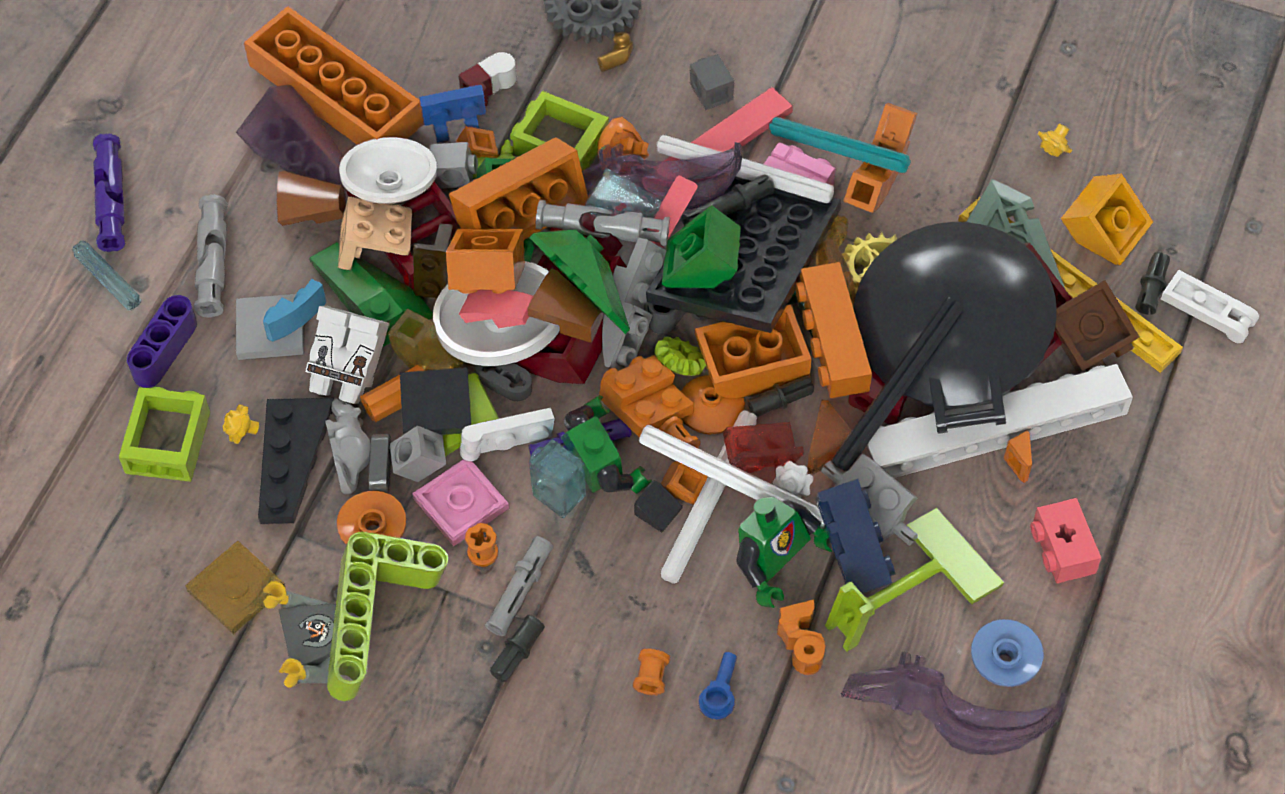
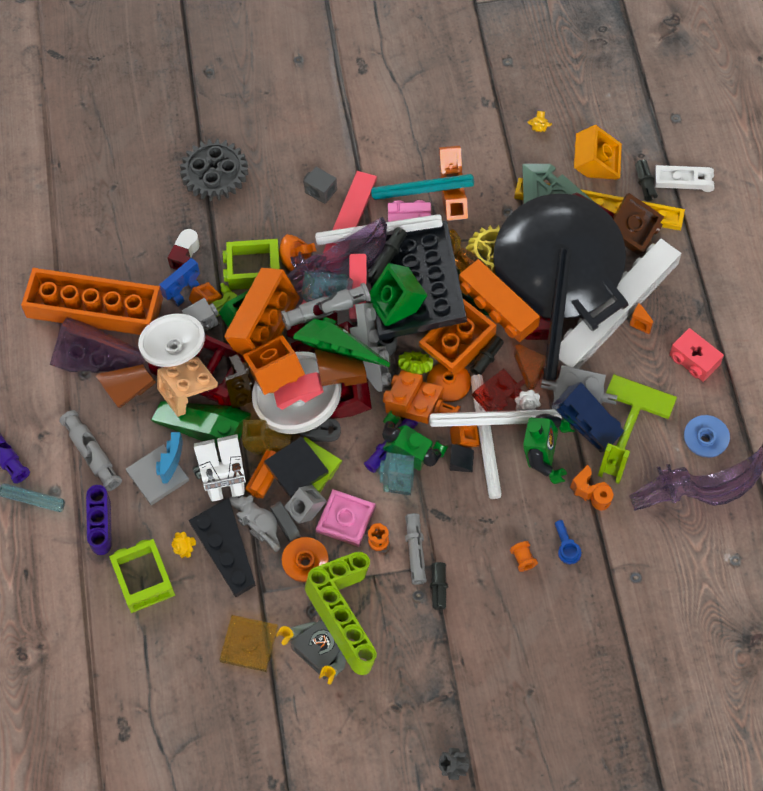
camera: 30 degrees left, 5 degrees up
(506, 433) = (348, 463): white plate -> none
(620, 53) = (252, 195): pearl gold arm -> none

